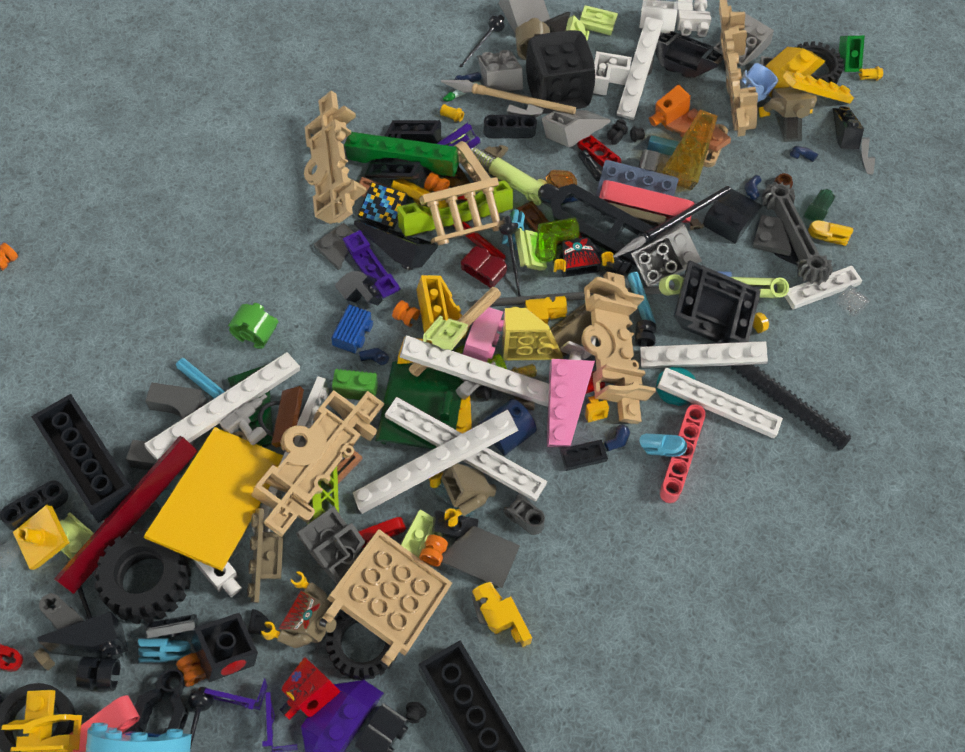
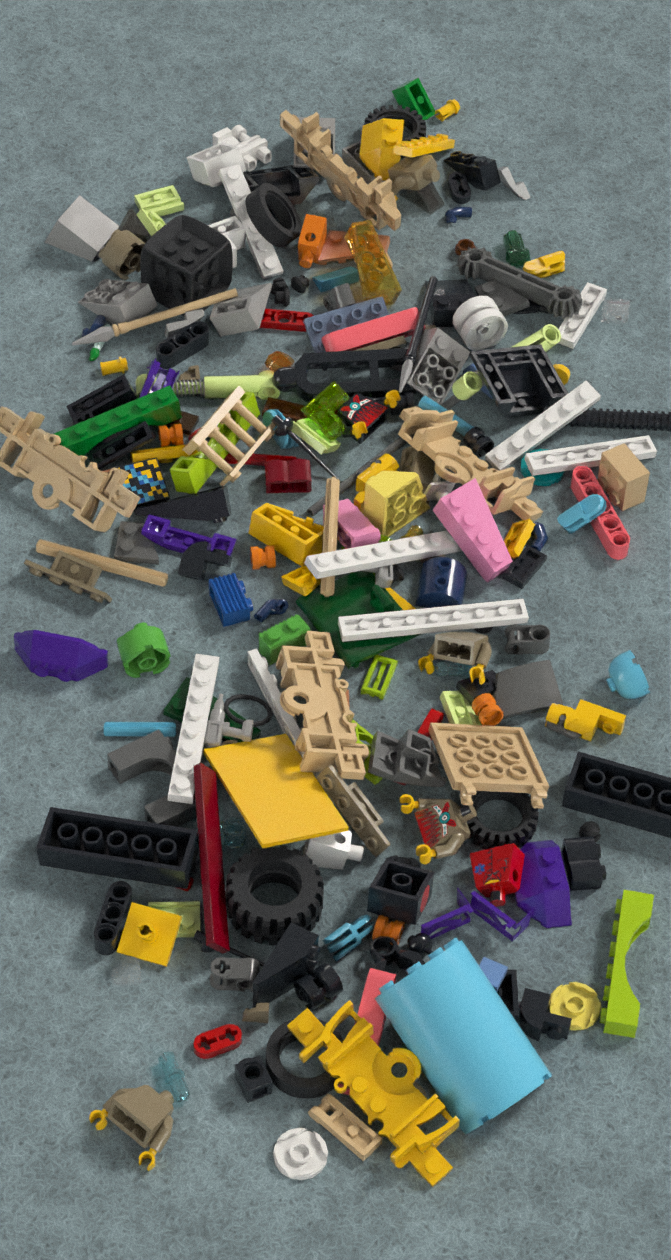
camera: 40 degrees left, 10 degrees down
(172, 627) = (337, 914): black plate -> none
(201, 291) = (59, 655): none -> dark purple wedge
(273, 238) = (74, 572): none -> dark tan bracket
(287, 413) = (257, 698): reddish brown tile -> none
(303, 244) = (105, 563): none -> tan axle
(374, 464) = (373, 691): none -> lime tile
(435, 461) = (421, 644): white plate -> none
(445, 333) = (333, 535): yellowish green plate -> none
(471, 163) = (194, 405): tan beam -> none
(496, 24) = (68, 262): black sword -> none
(568, 603) = (627, 677): none -> medium azure cylinder
(590, 164) = (288, 335): black axle -> none
(596, 410) = (503, 522): yellow tile -> none
(596, 429) = (518, 536): none -> yellow plate
(643, 76) = (265, 223): none -> black tyre
(723, 437) = (623, 477): none -> tan brick
(732, 243) = (480, 323): none -> white wheel
(751, 187) = (444, 270): dark blue arm -> none
(760, 78) = (370, 167): light blue helmet -> none
(826, 135) = (456, 188): none -> black beam

